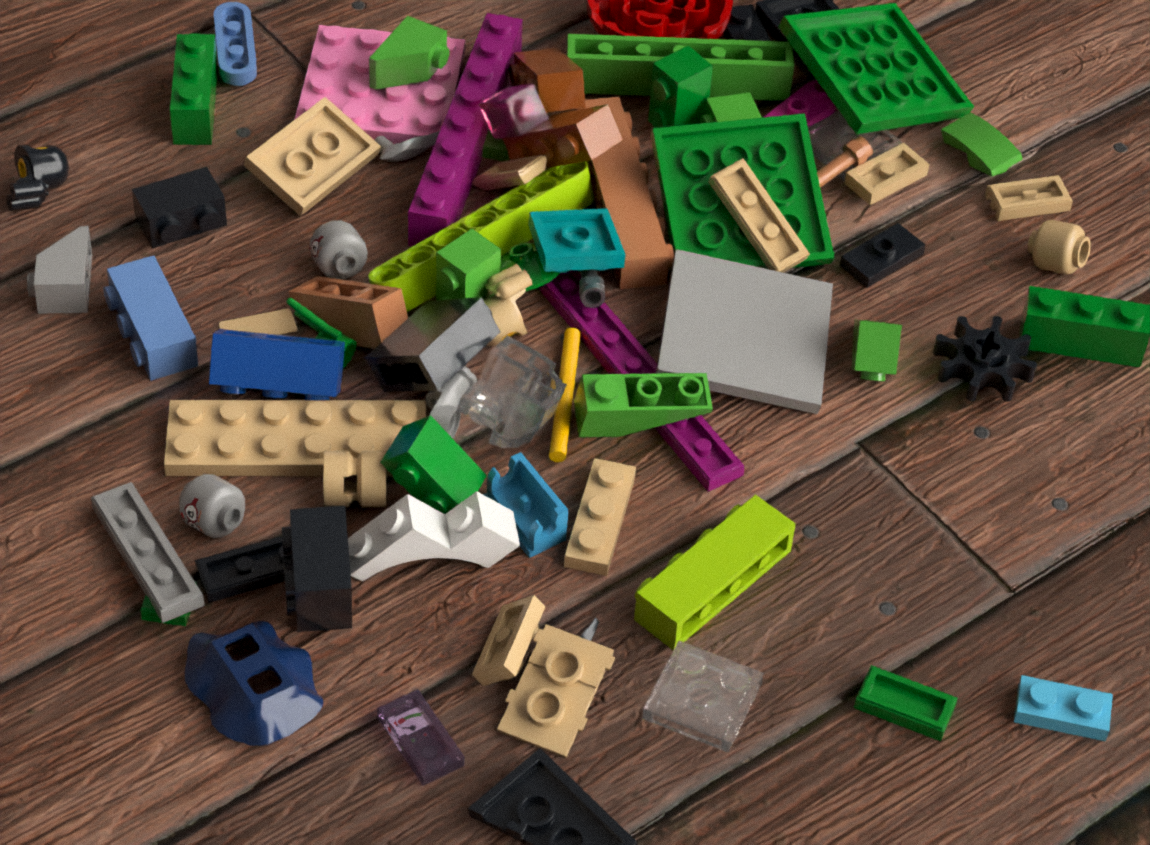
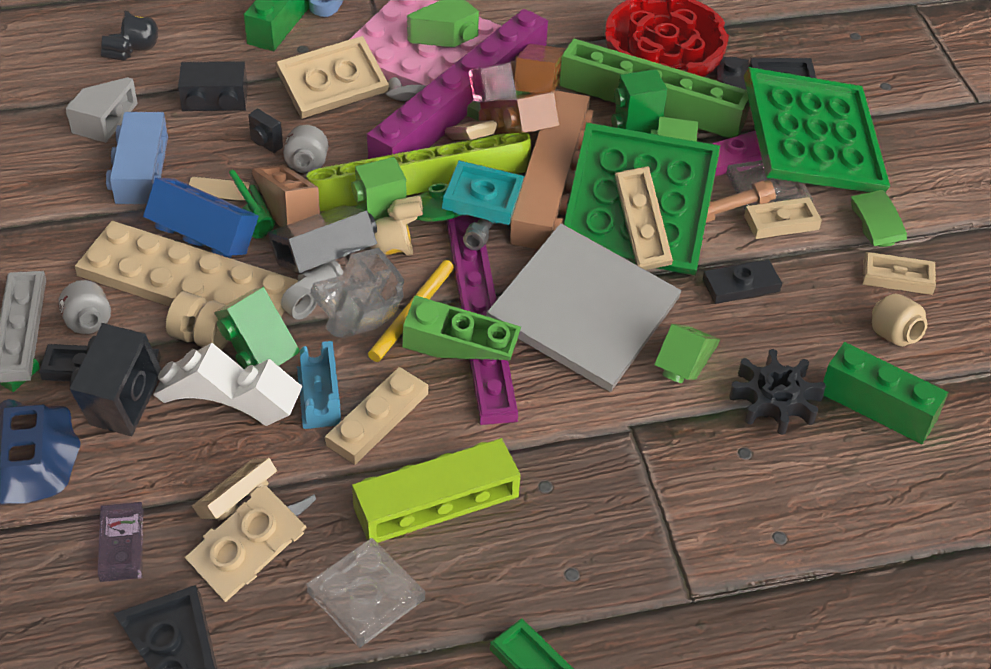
camera: 25 degrees right, 0 degrees up
(277, 242) = (265, 130): none -> black plate

